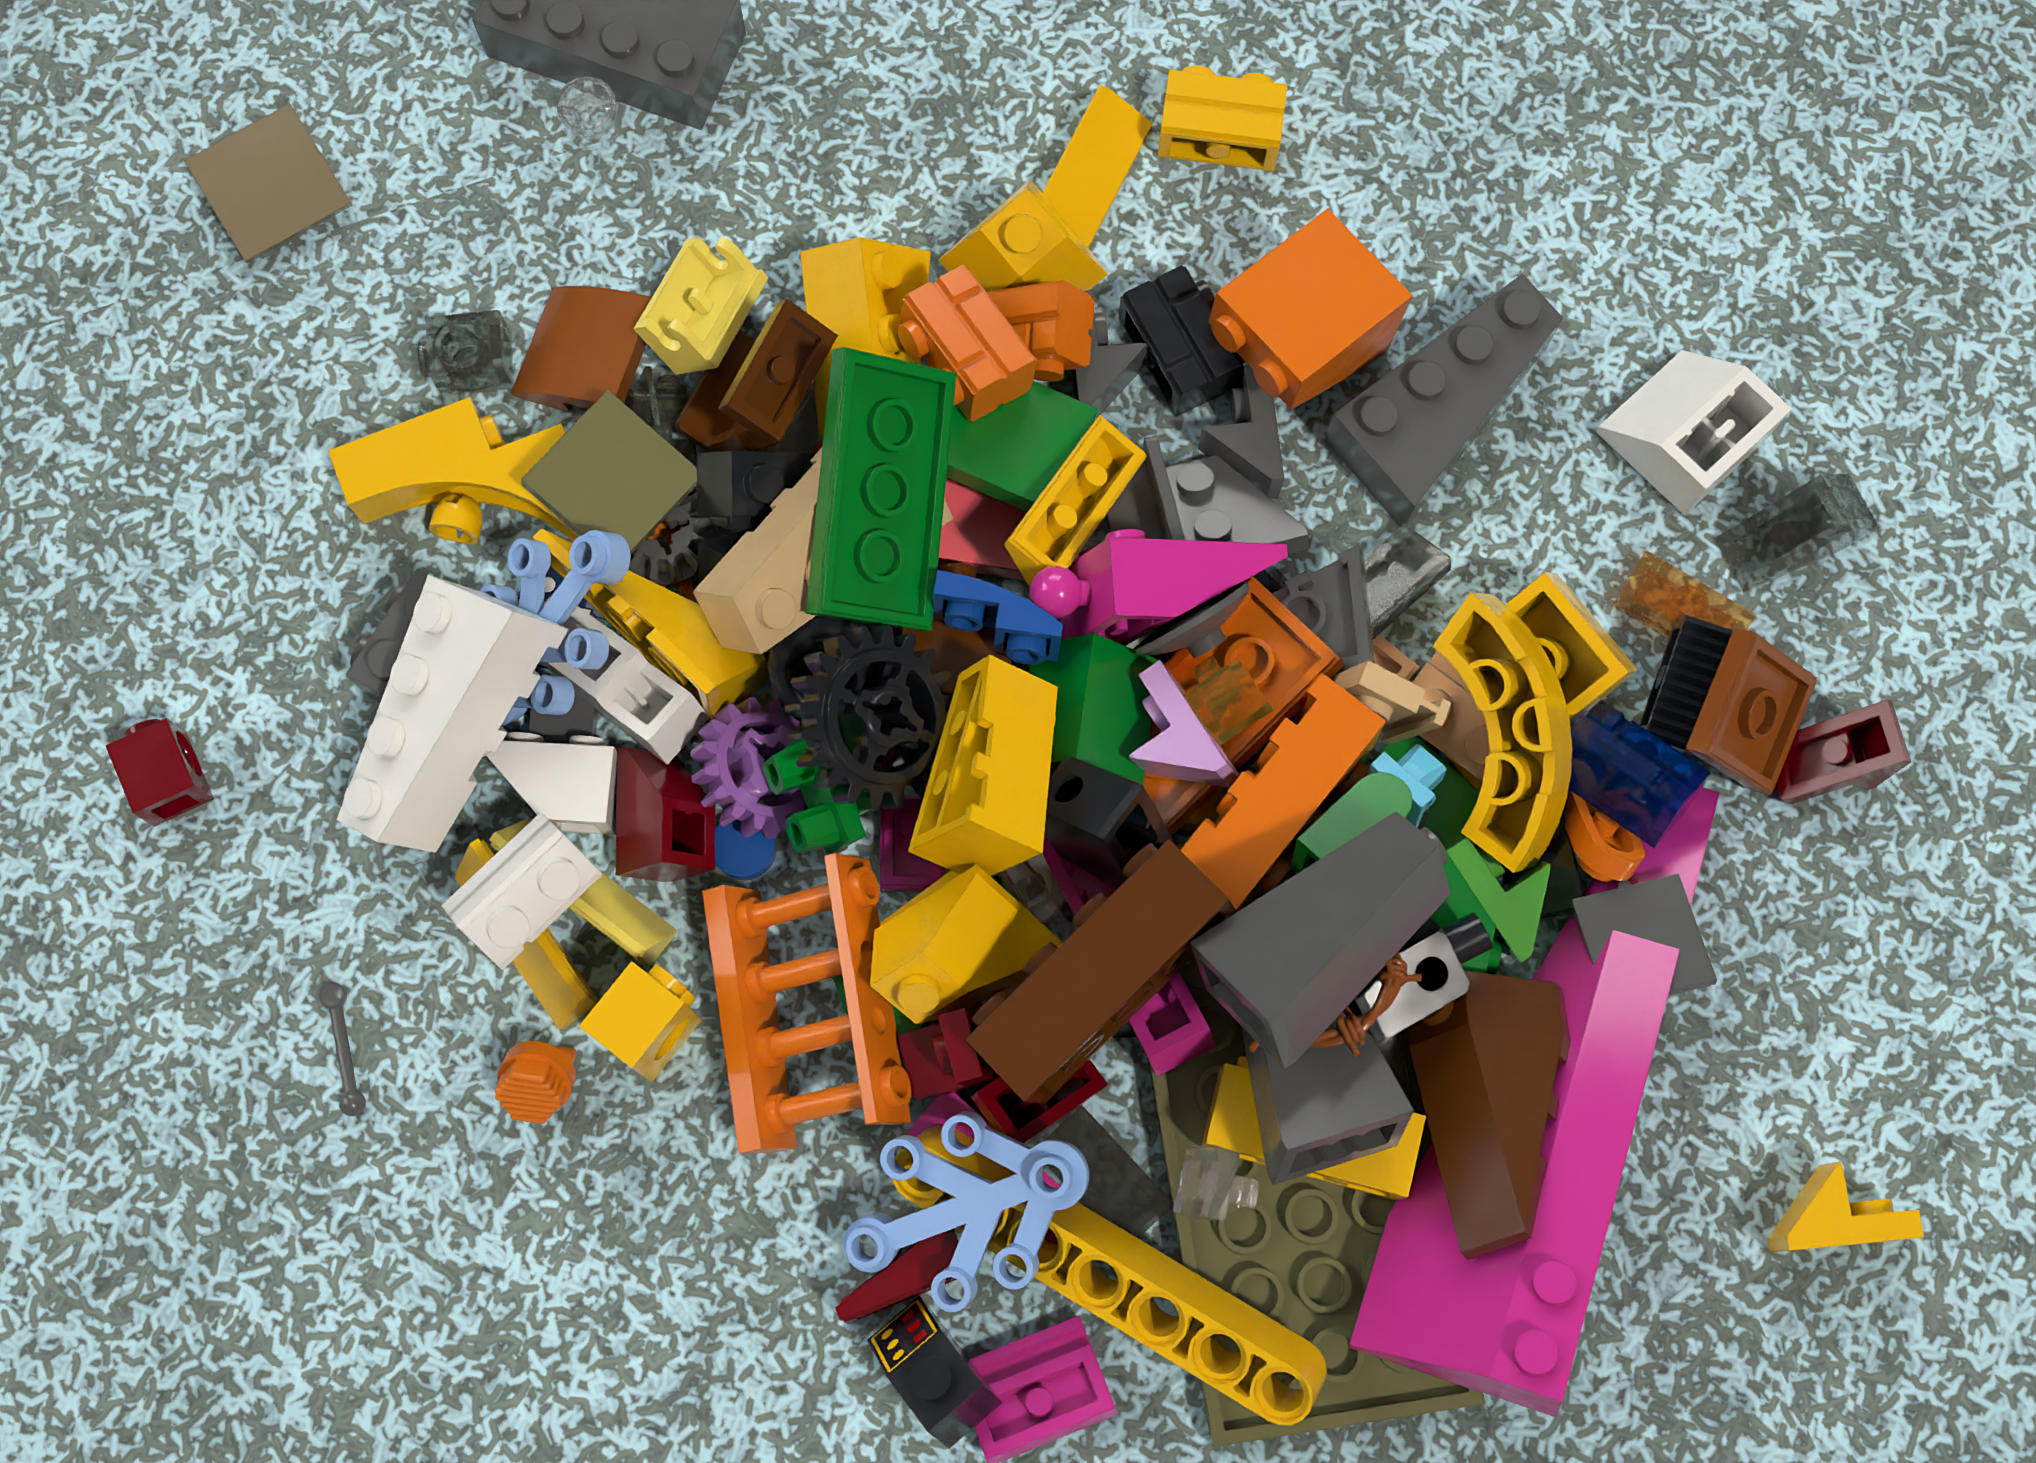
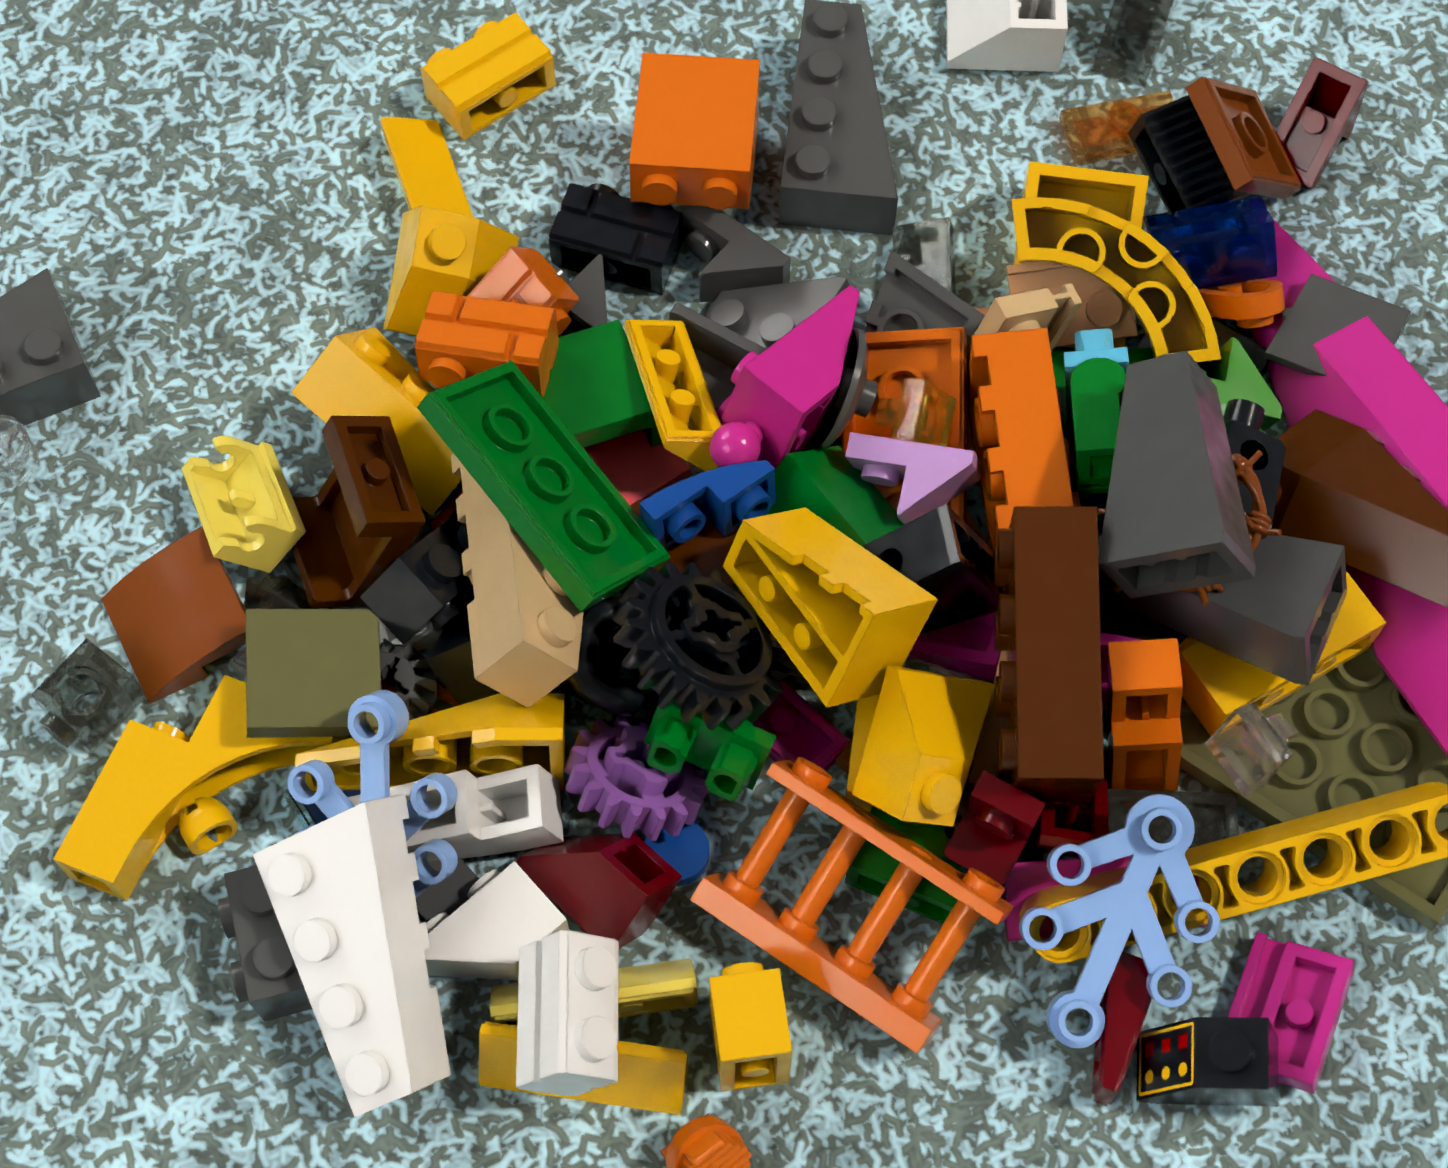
camera: 45 degrees left, 10 degrees down
(1141, 1082) = (1144, 714): none -> orange slope

